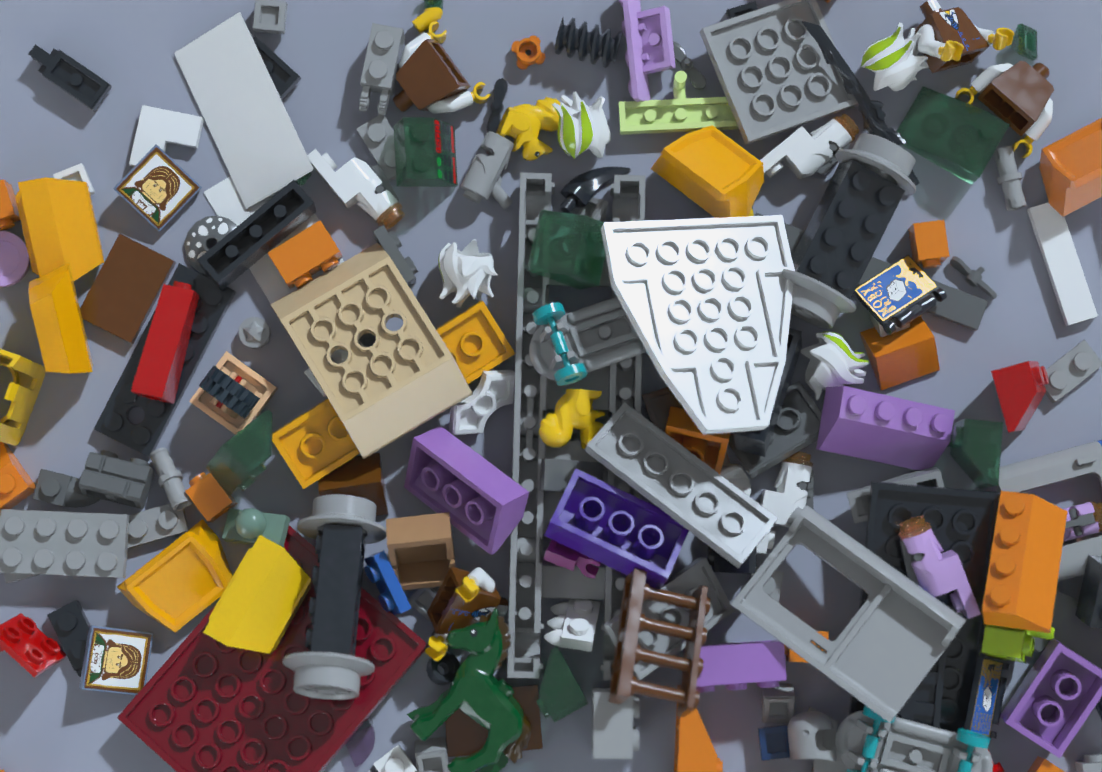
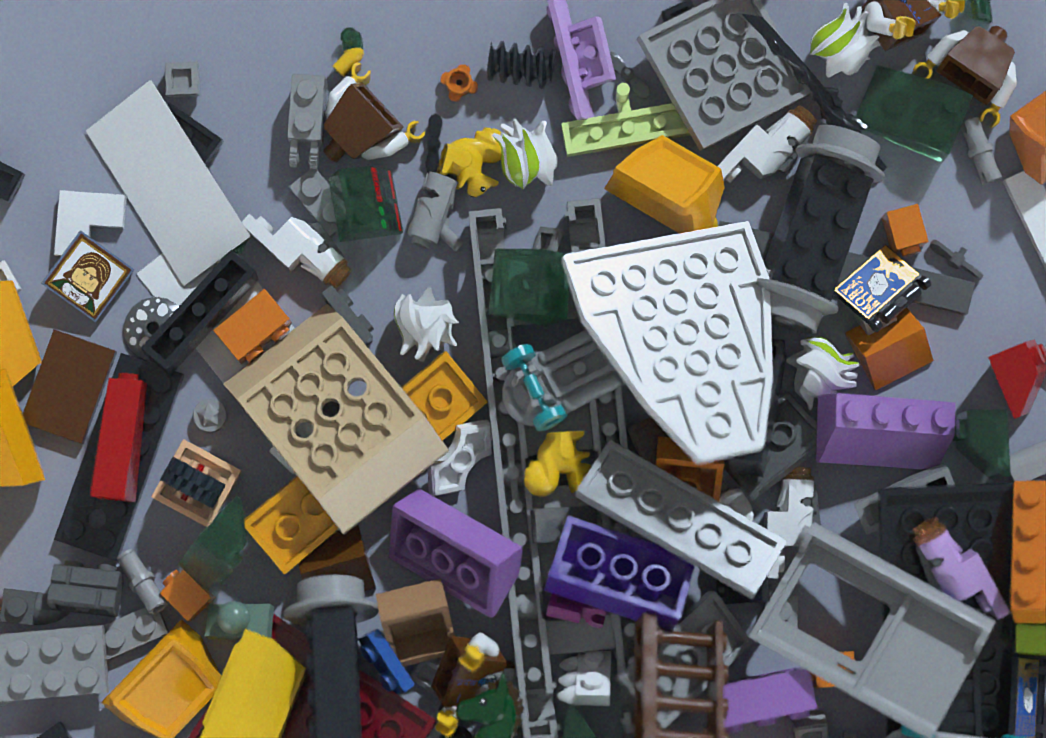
camera: 10 degrees left, 0 degrees up
(583, 187) = (536, 216): black bar -> none

